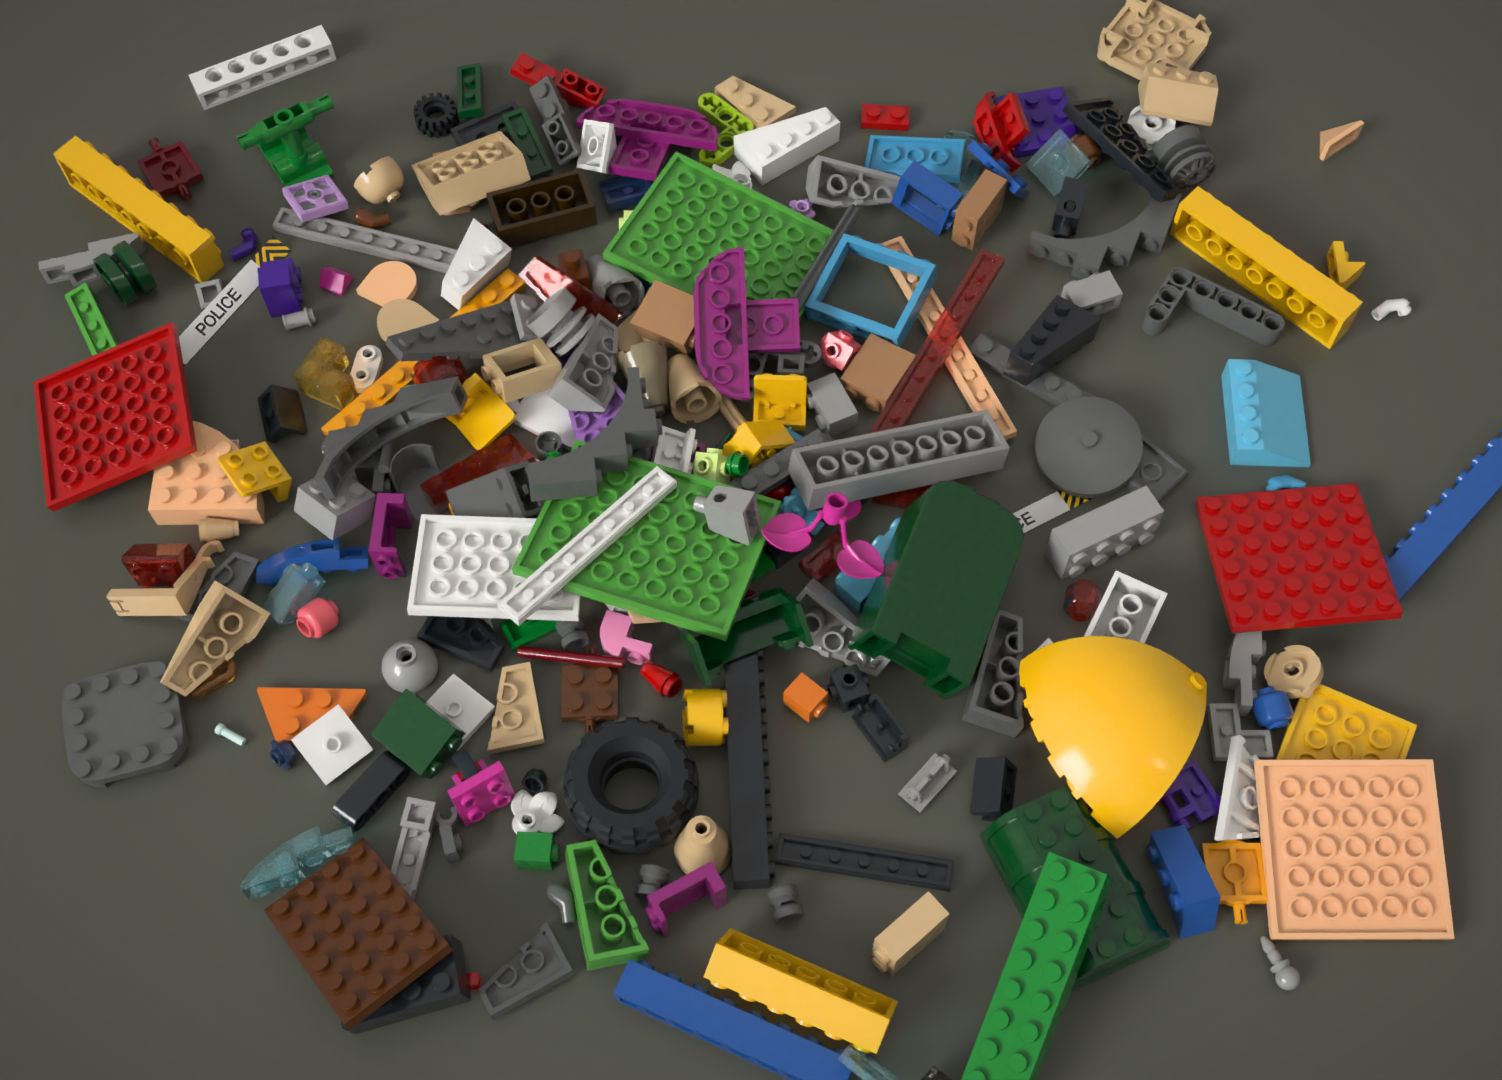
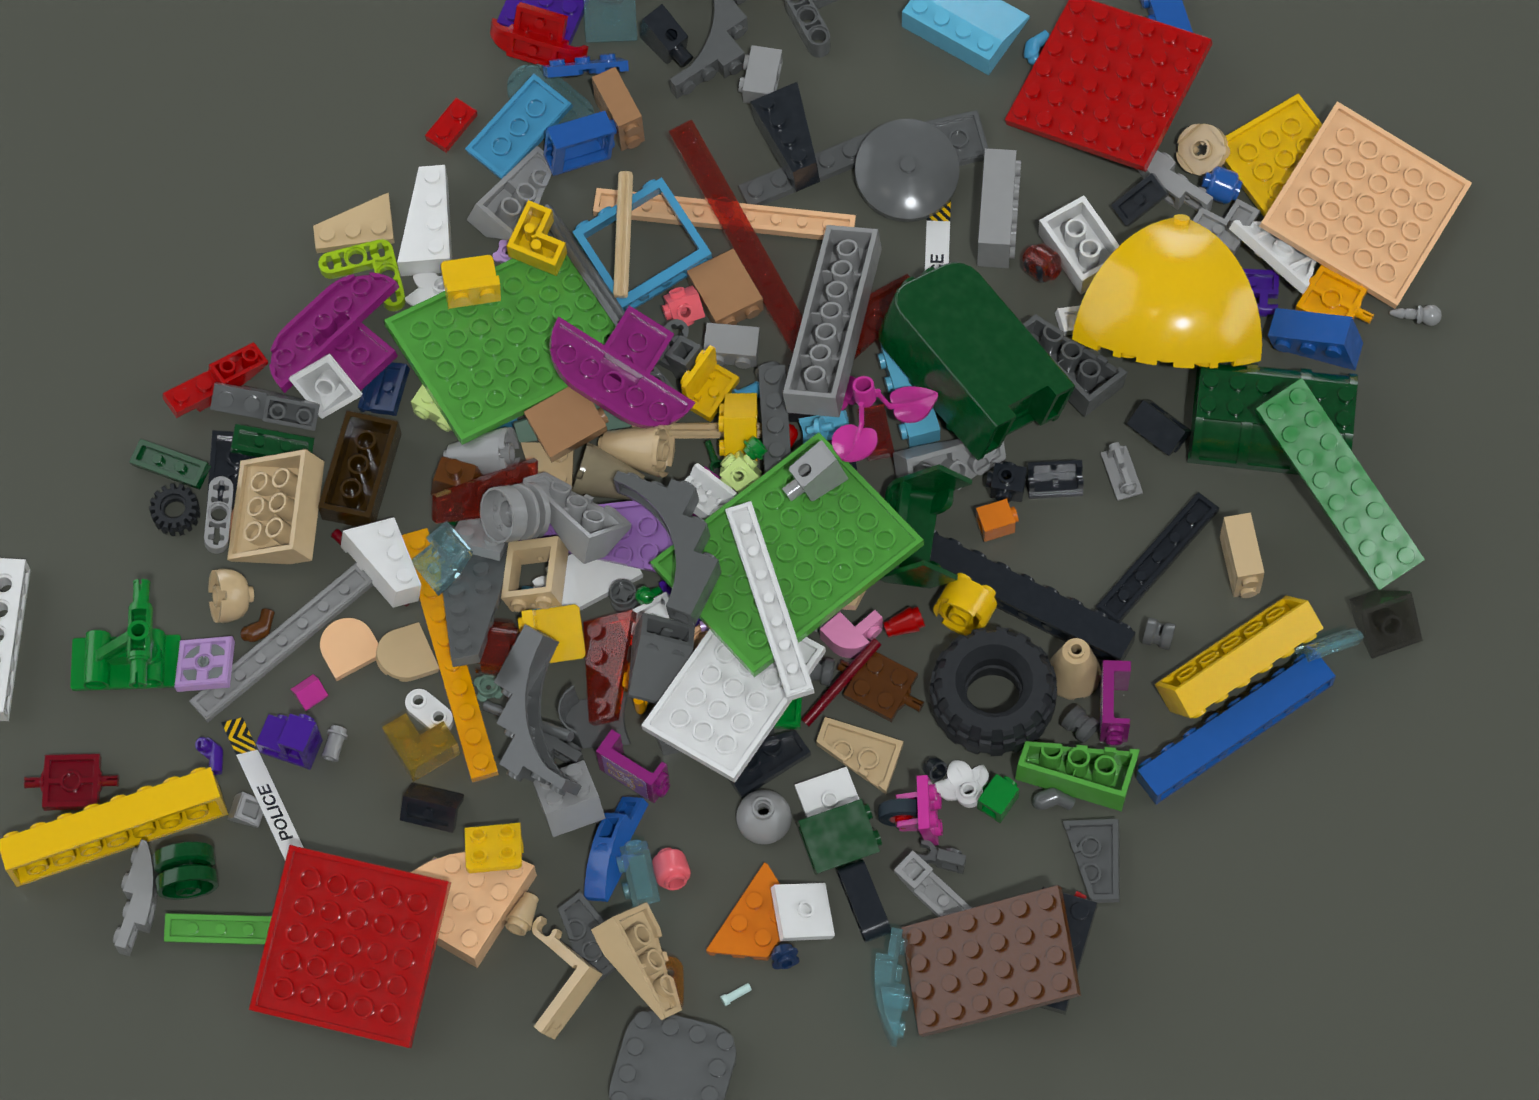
camera: 55 degrees left, 5 degrees up
(158, 563) = (531, 974): clear red slope -> none
(448, 130) = (213, 504): none -> light grey beam
(490, 296) = (443, 558): none -> clear light blue slope
(748, 188) = (470, 281): none -> yellow bracket
(817, 205) = (532, 244): none -> yellow brick
(864, 266) = (623, 234): none -> tan axle
(1204, 647) = (1140, 199): none -> black plate

